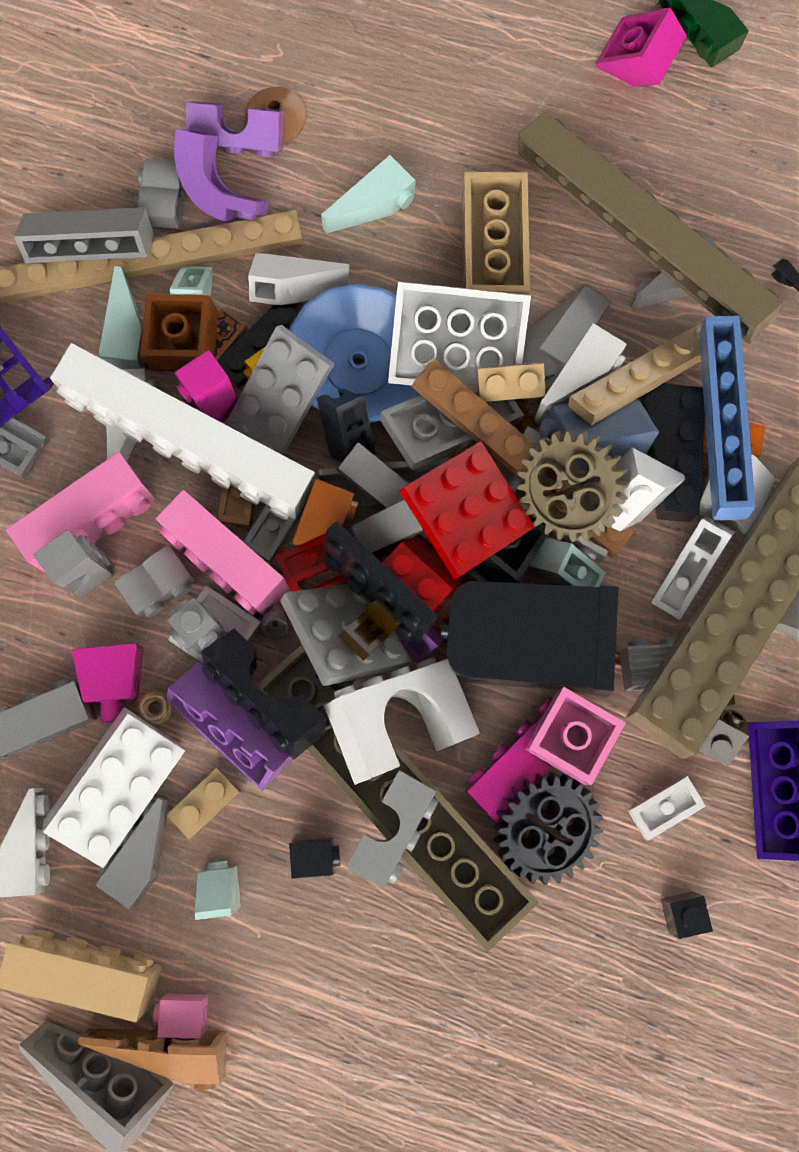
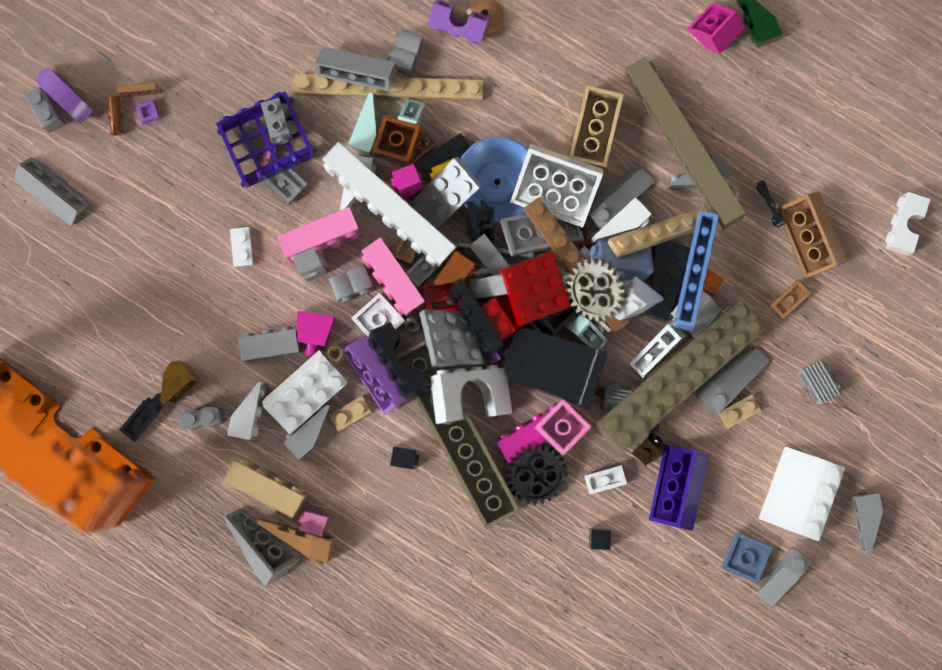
camera: 15 degrees right, 5 degrees up
(194, 626) = (369, 315): light grey brick -> none
(199, 177) = (432, 55): medium lavender arch -> none
(217, 891) = (348, 461): light aqua slope -> none
(292, 279) = (470, 124): white slope -> none
(370, 629) = (465, 341): dark brown bracket -> none
(372, 198) = (532, 83): light aqua slope -> none
(380, 859) = (440, 466): light grey arch -> none
(511, 381) = (580, 219): tan plate -> none

